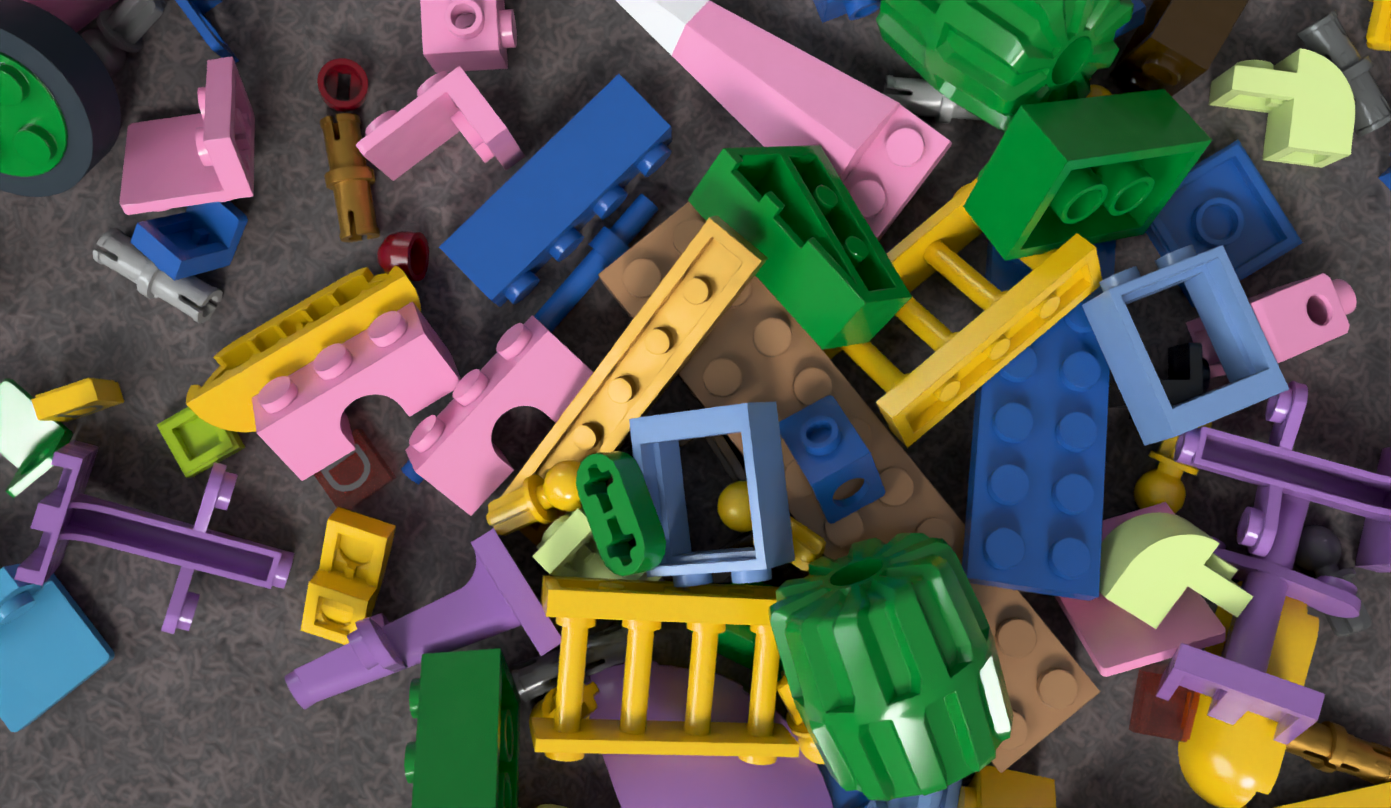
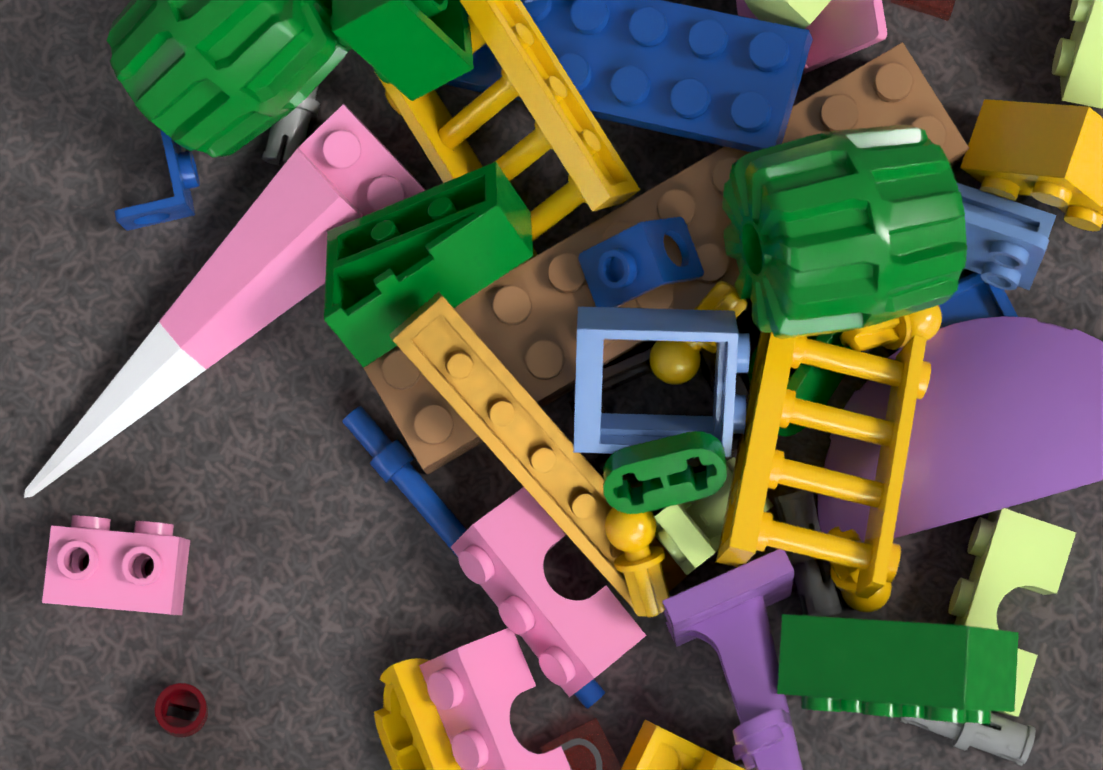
camera: 80 degrees left, 5 degrees down
(349, 178) = (277, 719): pearl gold pin -> none
(407, 252) = (363, 671): dark red hinge -> none
(440, 111) = (250, 568): bright pink bracket -> none
(560, 192) = (329, 502): blue brick -> none

